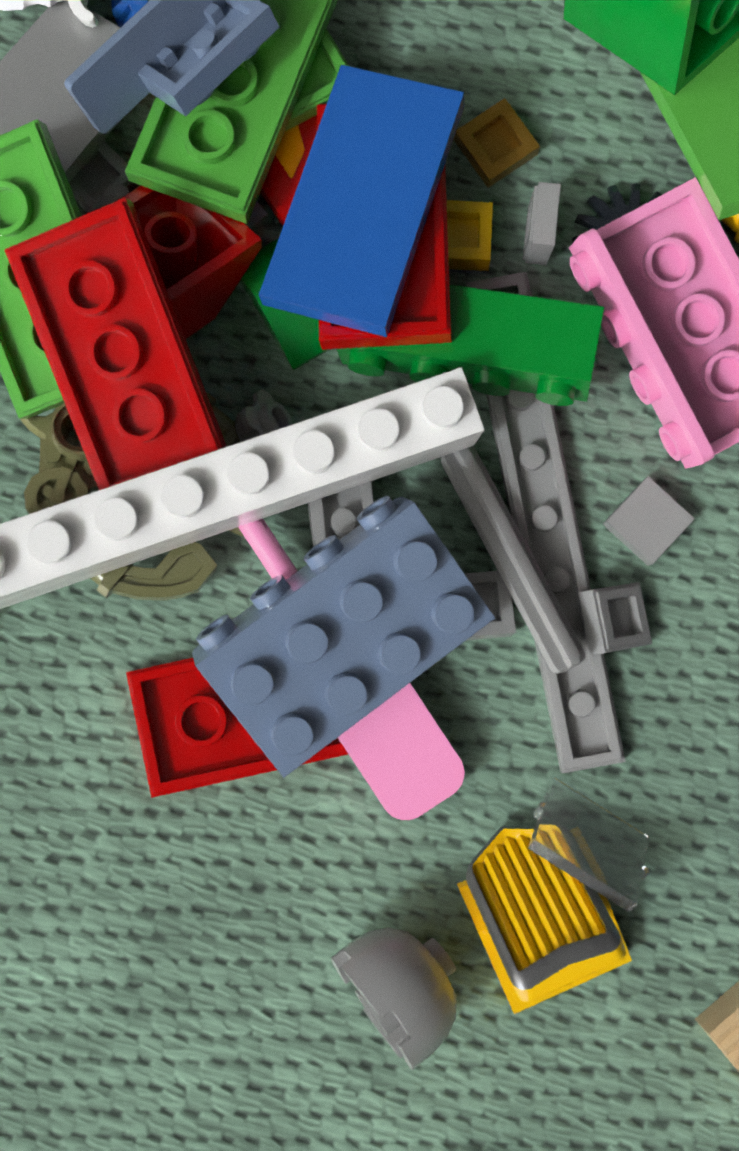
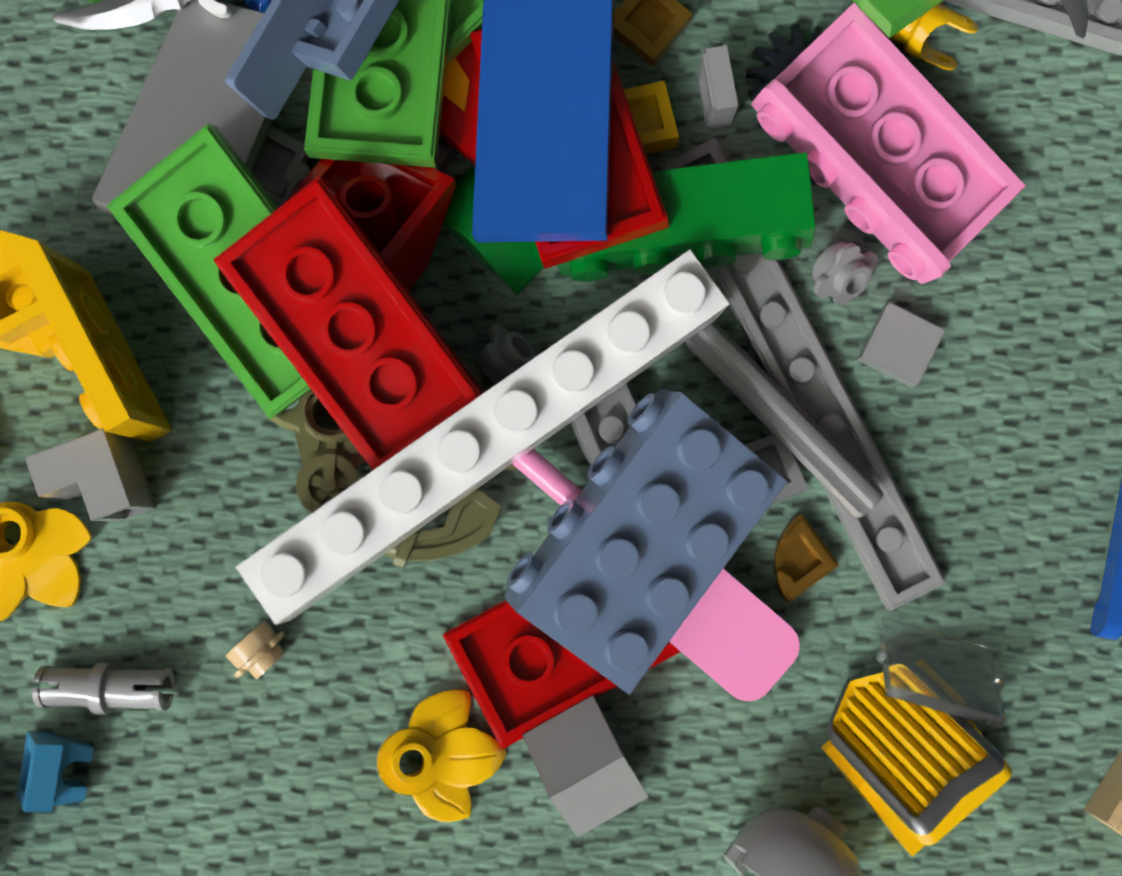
camera: 15 degrees left, 0 degrees up
(100, 791) = (450, 755): none -> yellow plate
(223, 837) = (584, 767): none -> light grey piece
(491, 699) = (800, 559): none -> pearl gold tile
(611, 435) = (843, 272): none -> light grey plate
(614, 618) = (897, 448): light grey tile -> none

